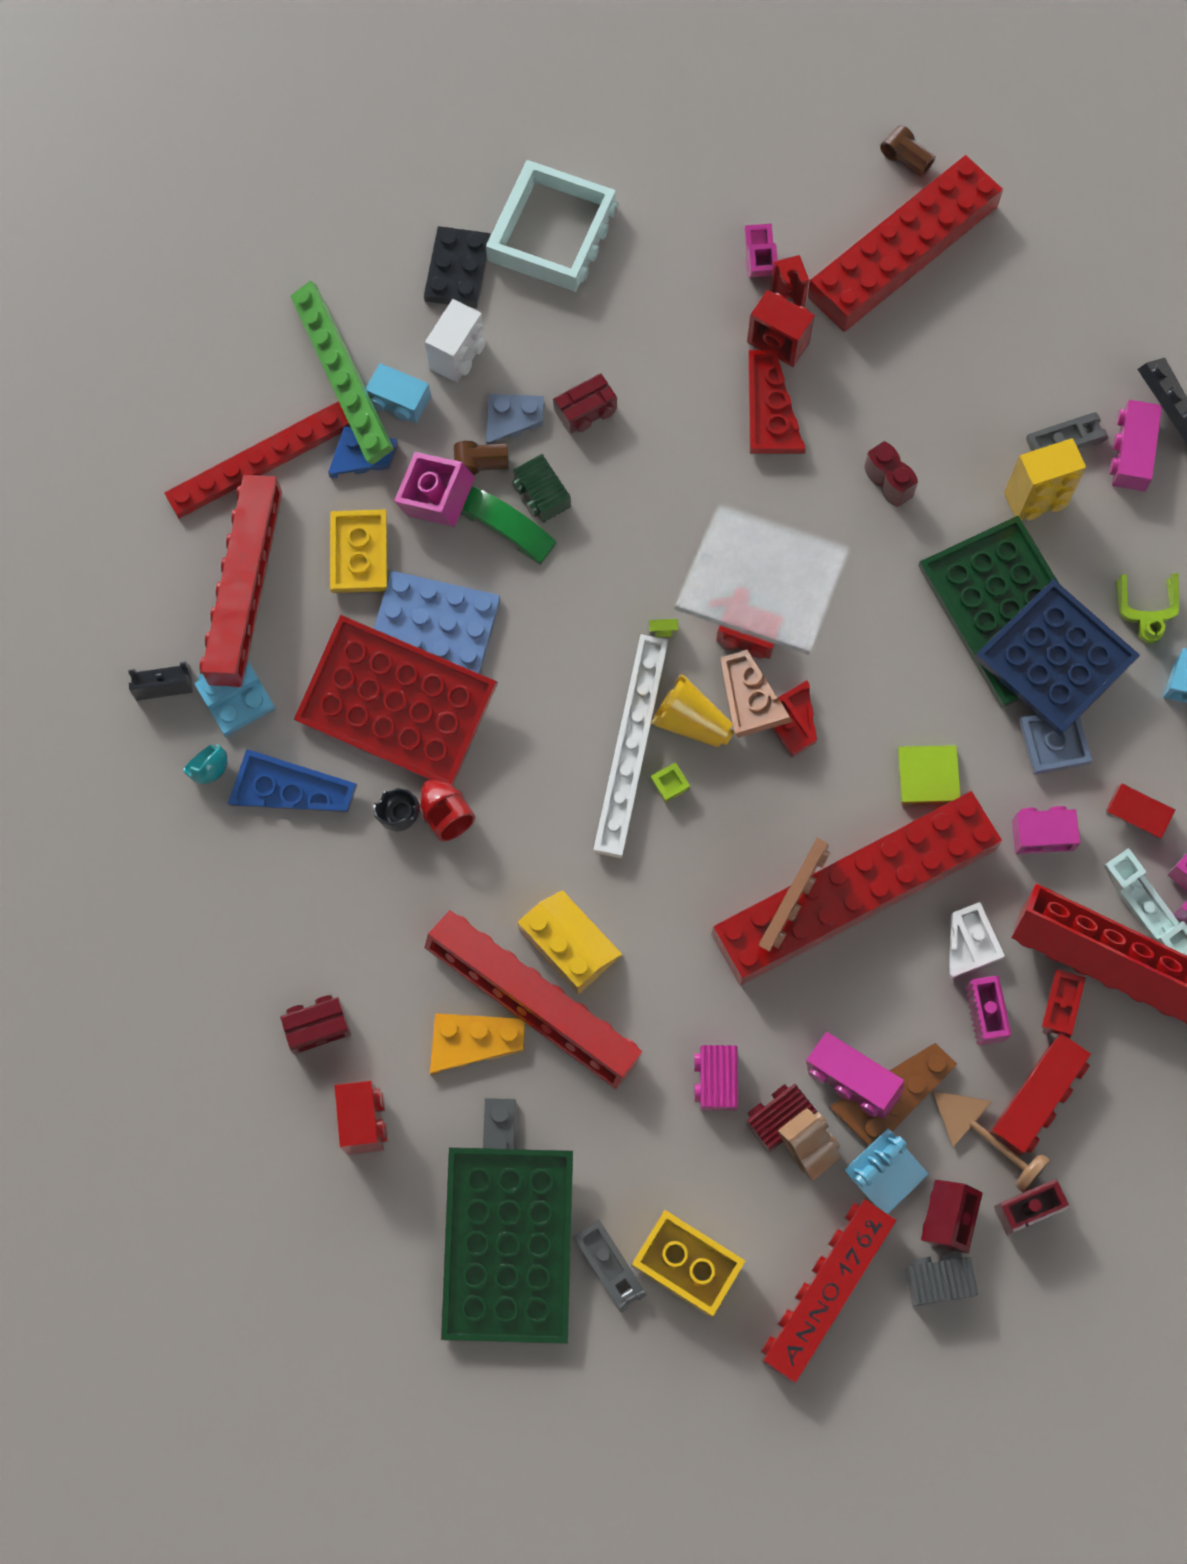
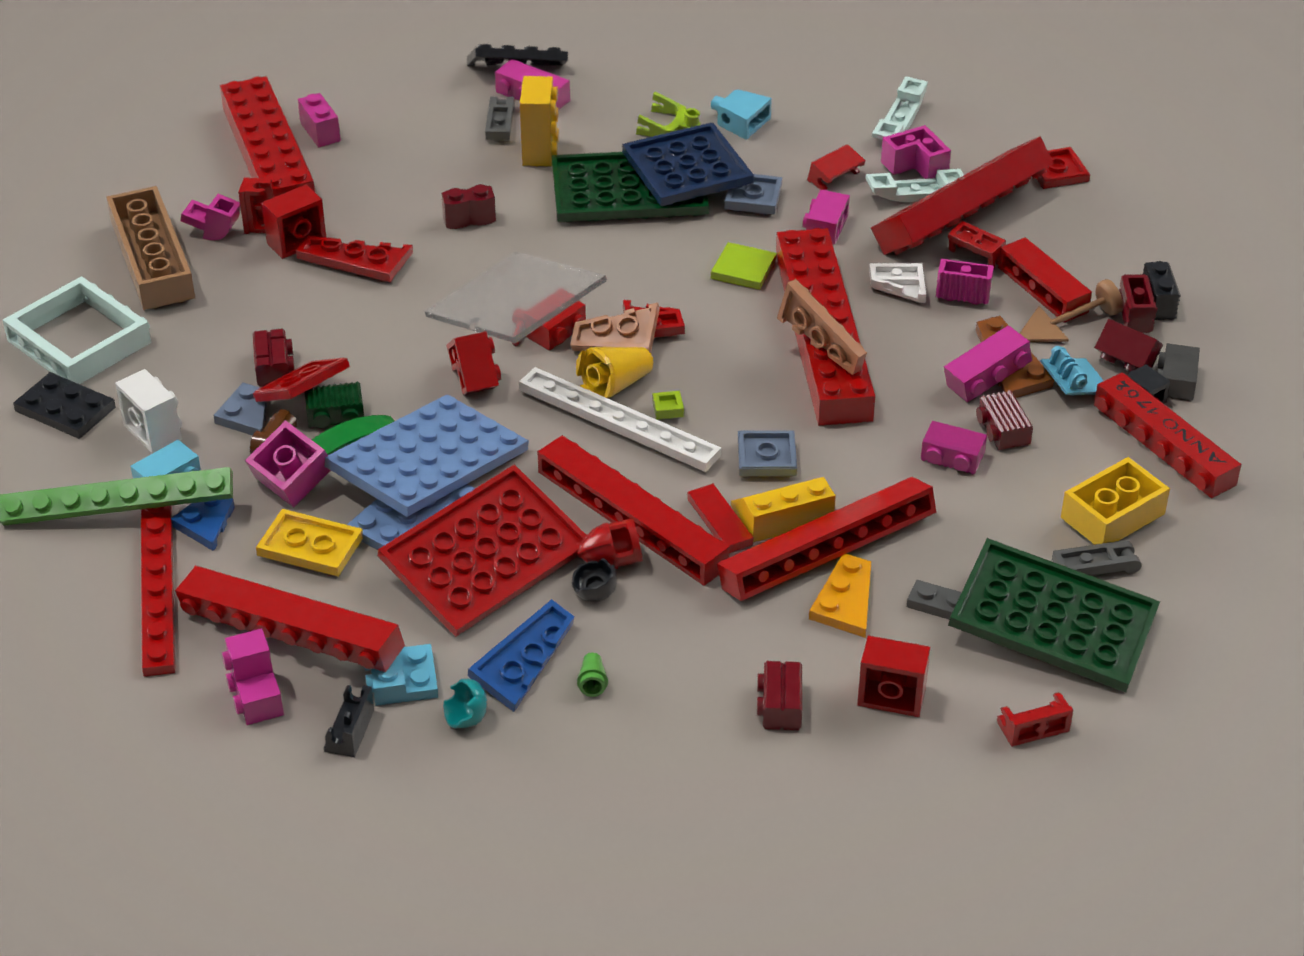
camera: 70 degrees left, 30 degrees down
(173, 585) = (252, 677): none -> dark pink brick
(285, 853) = (592, 676): none -> bright green cone
(370, 1261) = (1037, 722): none -> red hinge
(502, 598) = (426, 454): none -> medium blue plate
(506, 806) = (620, 499): none -> red brick
(533, 888) = (720, 517): none -> red tile
(554, 445) = (301, 379): none -> red tile
(638, 900) = (767, 453): none -> sand blue plate
(642, 579) = (474, 362): none -> red brick
(663, 627) = (520, 367): lime plate -> none
(689, 223) = (150, 248): none -> medium nougat brick
(810, 1143) = (1037, 402): medium nougat brick -> none
(897, 1251) = (1152, 382): none -> black brick
(903, 147) = (182, 122): reddish brown piece -> none
(969, 270) = (319, 120): none -> dark pink brick
(1073, 1227) = (1164, 289): none -> black brick

